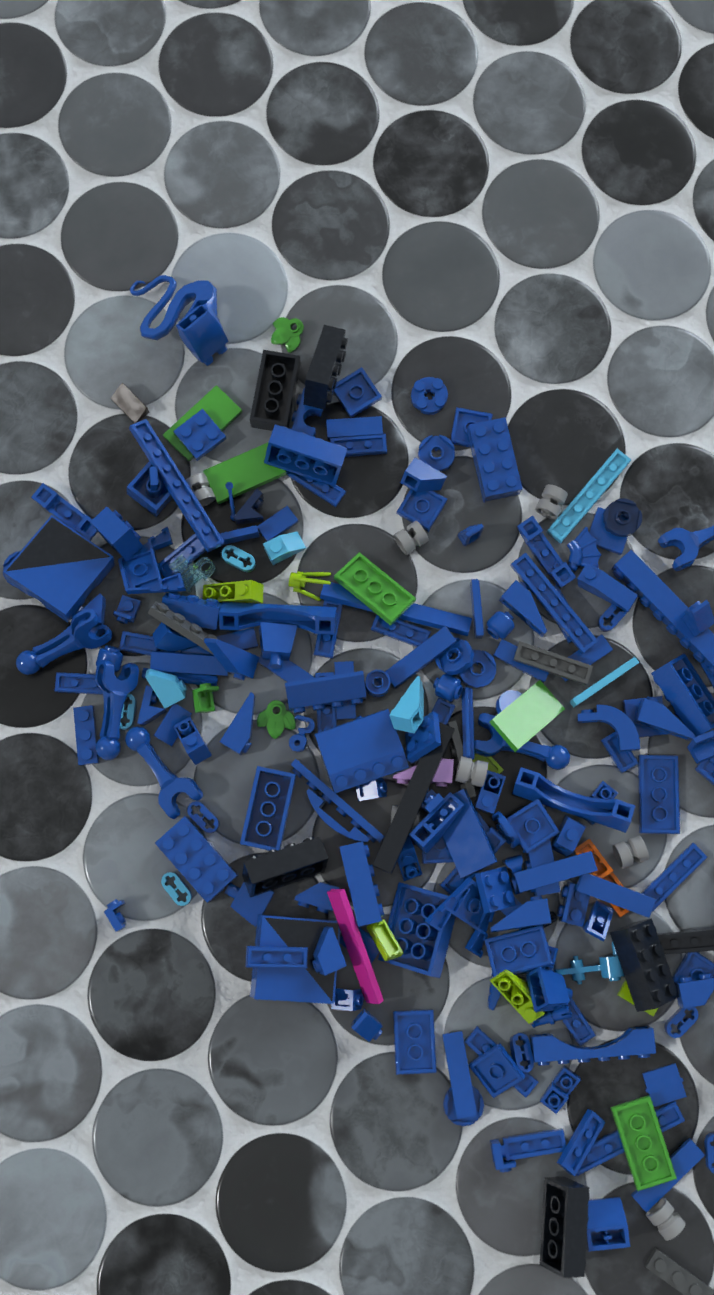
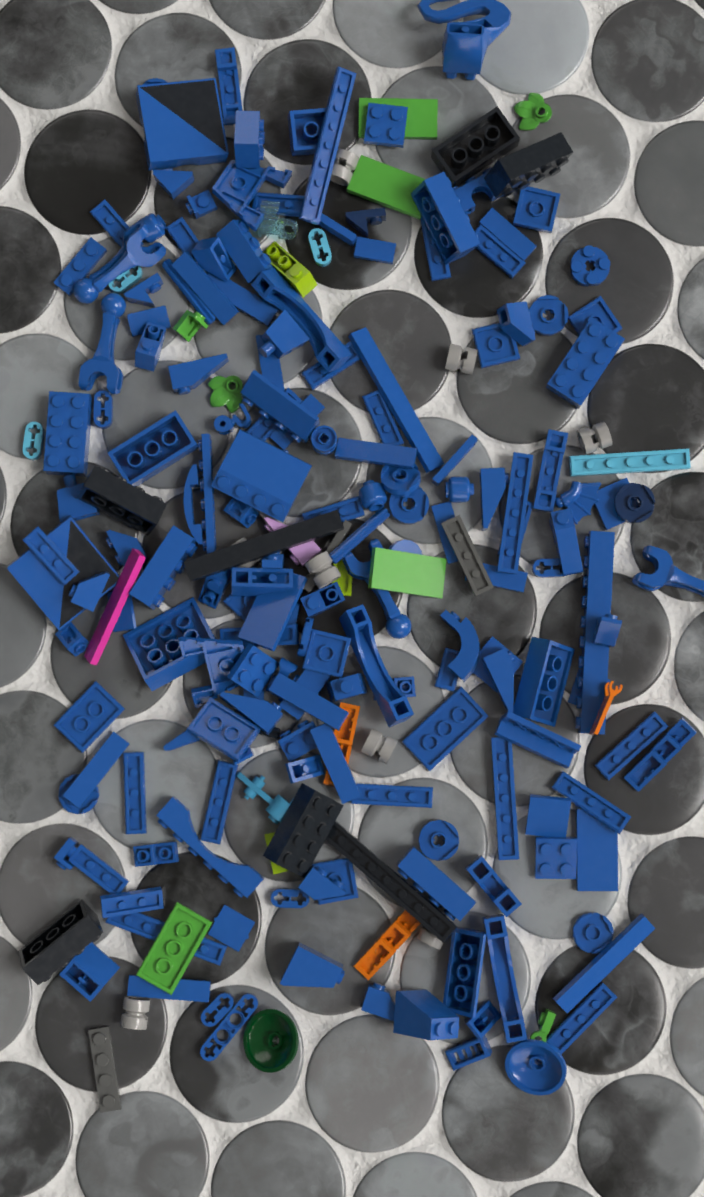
camera: 50 degrees right, 5 degrees up
(79, 635) = (144, 187): blue piece -> none
(129, 403) = (358, 49): slope -> none
(153, 475) = (314, 124): blue tile -> none
(166, 687) = (170, 288): medium azure slope -> none
(179, 624) = (226, 258): dark grey plate -> none
(229, 486) = (366, 185): blue hinge -> none
(233, 659) = (238, 317): blue slope -> none
(283, 547) = (361, 271): medium azure slope -> none
(299, 580) = (346, 308): lime plant -> none
(367, 1025) = (67, 670): blue slope -> none
(374, 588) = (395, 369): bright green tile -> none
(384, 940) = (140, 625): lime tile -> none
(410, 709) = (326, 481): medium azure slope -> none
(424, 739) = (315, 510): blue plate -> none
(470, 534) = (508, 401): blue slope -> none
(496, 1070) = (124, 794): blue tile -> none
(517, 994) = (193, 759): lime slope -> none
(525, 1052) = (151, 798): blue beam -> none
(547, 990) = (216, 776): blue torso -> none
(553, 1016) = (201, 797): blue pin -> none
(604, 681) = (491, 608): medium azure tile -> none

